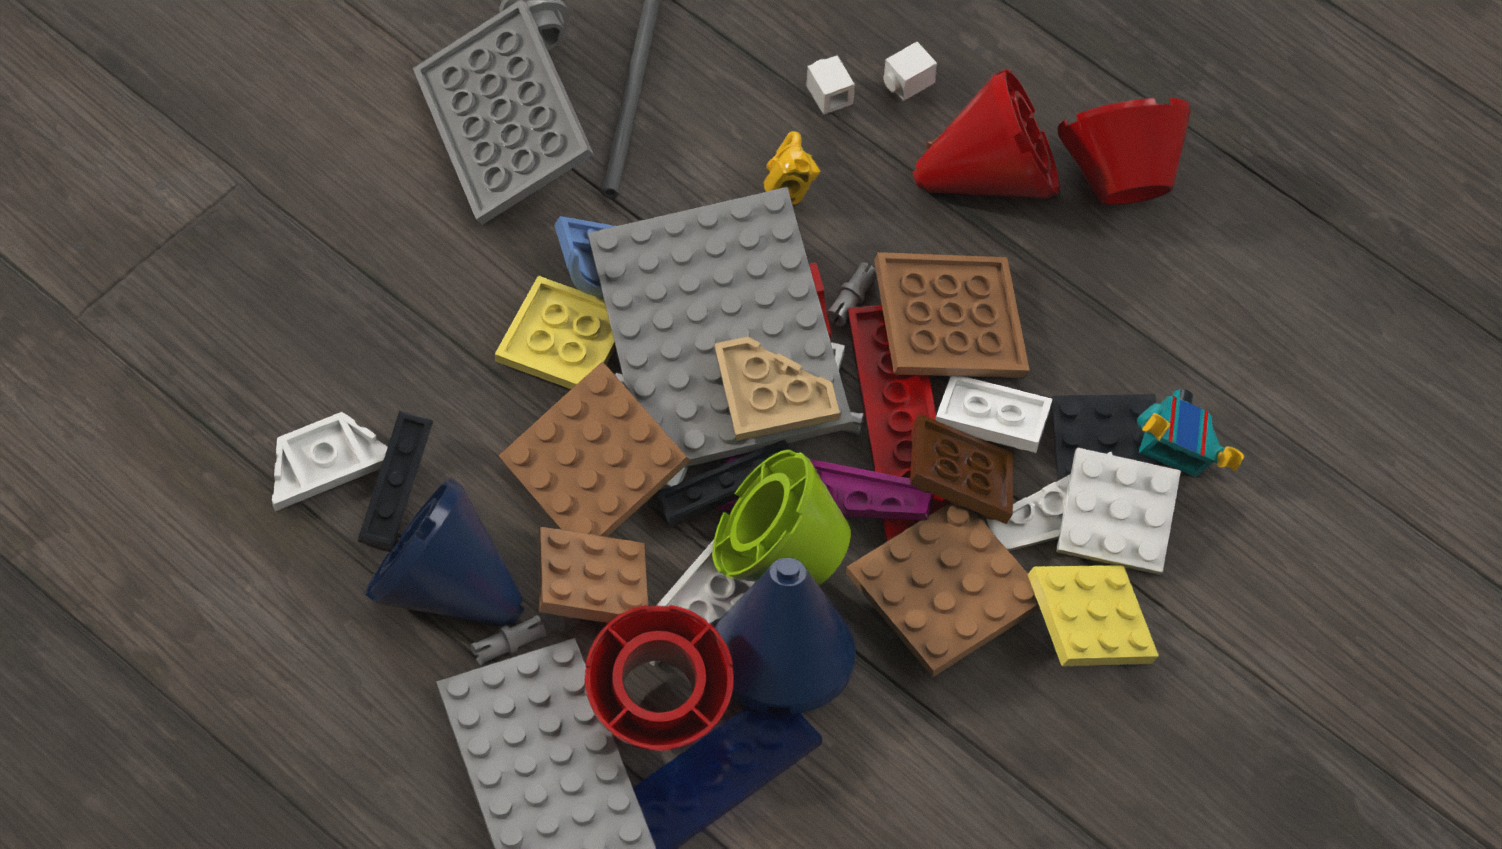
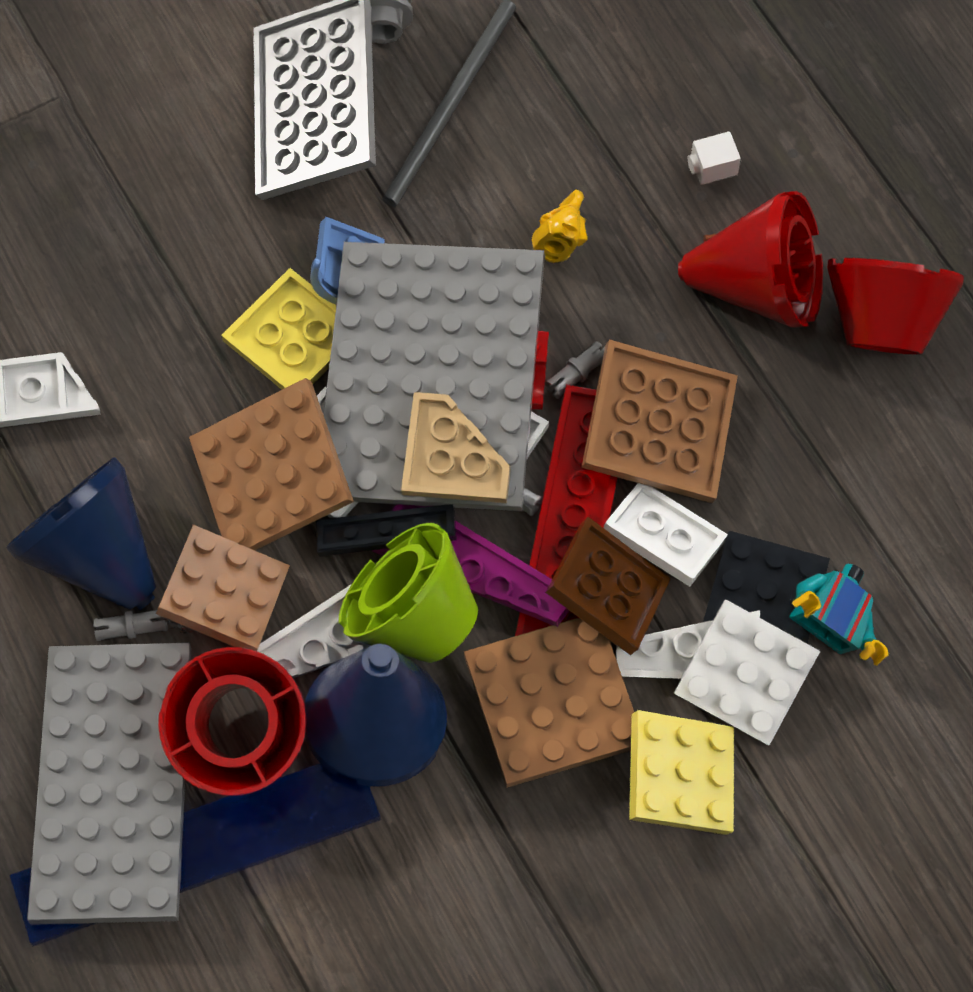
camera: 20 degrees right, 10 degrees up
(395, 481) = (84, 435): black tile -> none
(830, 84) = (634, 150): white brick -> none

